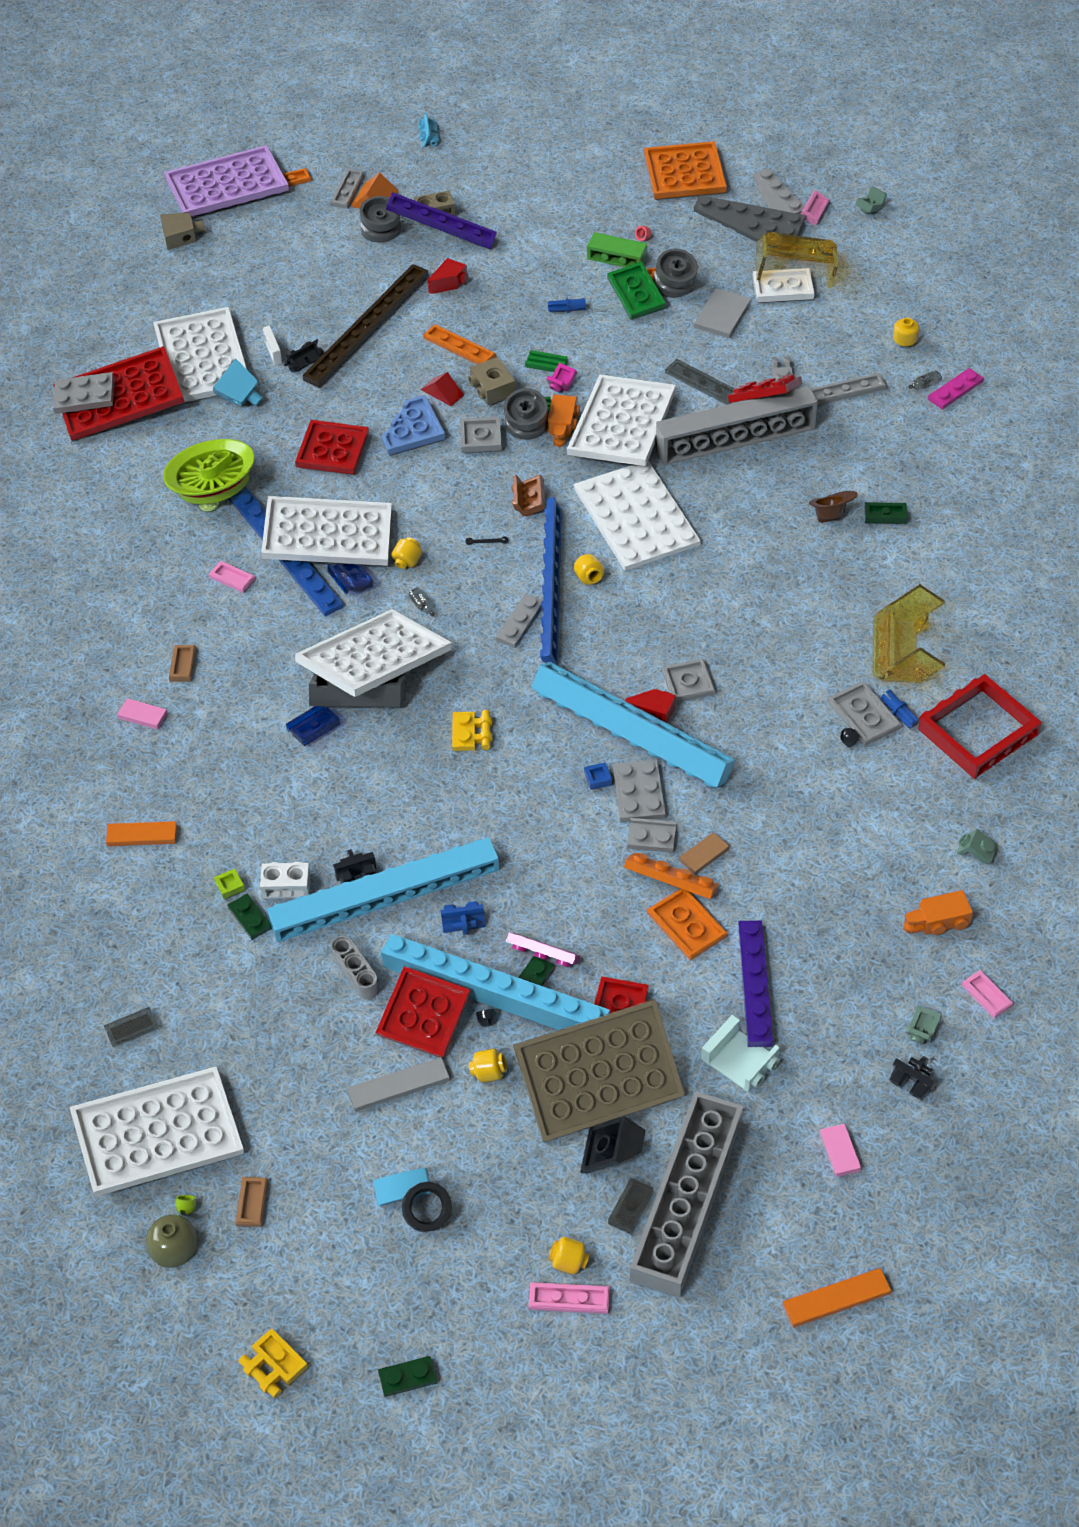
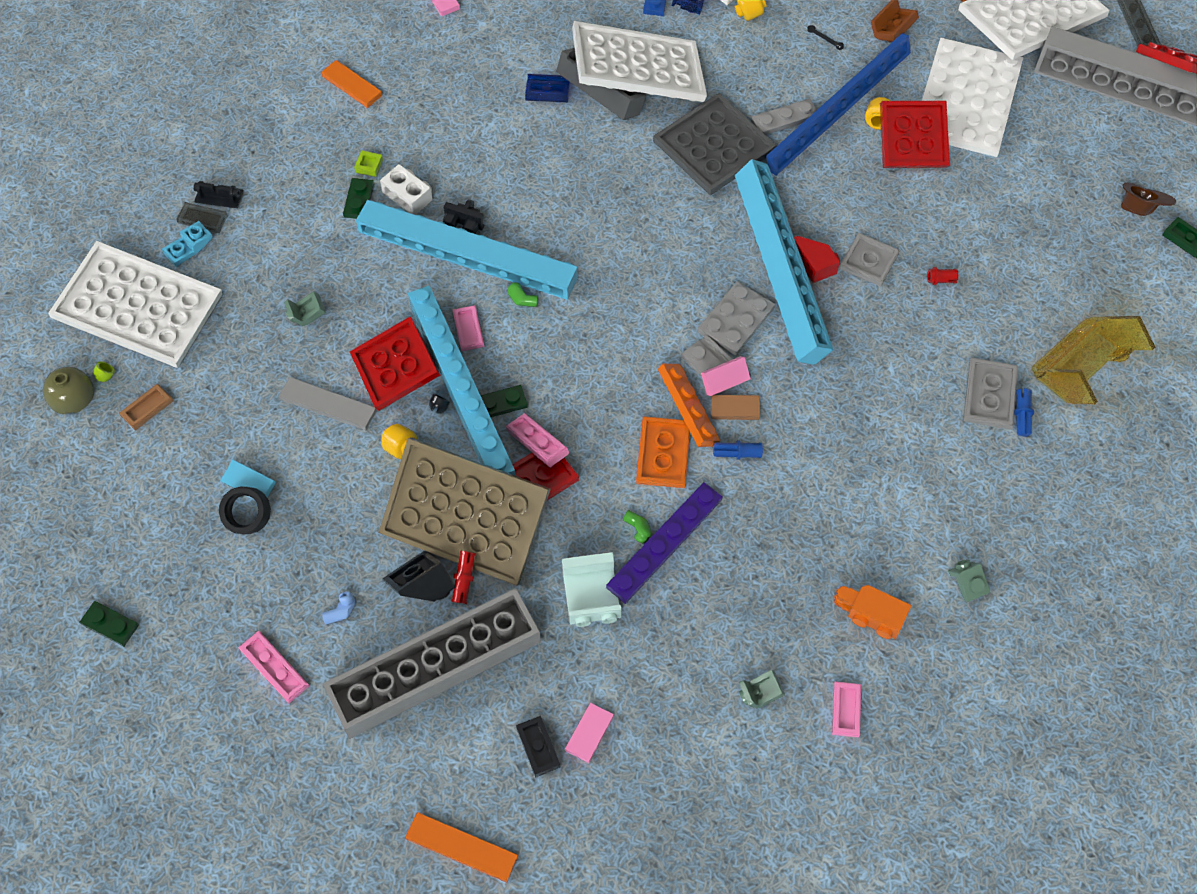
camera: 40 degrees right, 10 degrees up
(126, 1000) = (217, 195): none -> black hinge
(144, 1055) = (191, 242): none -> medium azure slope
(279, 1357) = (44, 534): yellow plate -> none
(304, 1028) = (305, 310): none -> sand green bracket
(353, 958) = (385, 283): light grey beam -> none
(421, 601) = (725, 50): clear smoke piece -> none
(445, 942) = (468, 328): none -> bright pink tile
(462, 894) = (519, 297): none -> bright green arm
(462, 917) = (498, 315): blue hips -> none
(464, 731) = (653, 172): yellow plate -> none
(489, 676) = (713, 143): none -> dark grey plate
(542, 950) = (531, 385): plate -> none
(568, 1255) = (302, 634): yellow head -> none
(576, 1216) = (342, 610): none -> light blue arm
(592, 982) = (537, 440): none -> bright pink tile
(598, 776) = (715, 282): blue plate -> none
(630, 1206) = (386, 636): clear smoke plate -> none
(632, 566) = (914, 134): none -> red plate
(643, 1118) = (463, 577): none -> red pin
(677, 835) = (725, 376): none -> bright pink tile
(725, 984) = (640, 524): none -> bright green arm
(738, 880) = (738, 450): none -> blue axle
(751, 655) = (942, 276): none -> red pin
(817, 1187) = (538, 746): none -> black plate
(849, 736) = (954, 402): black hinge -> none
(922, 1085) = (710, 736): black hips -> none
(998, 752) = (1080, 513): red window -> none

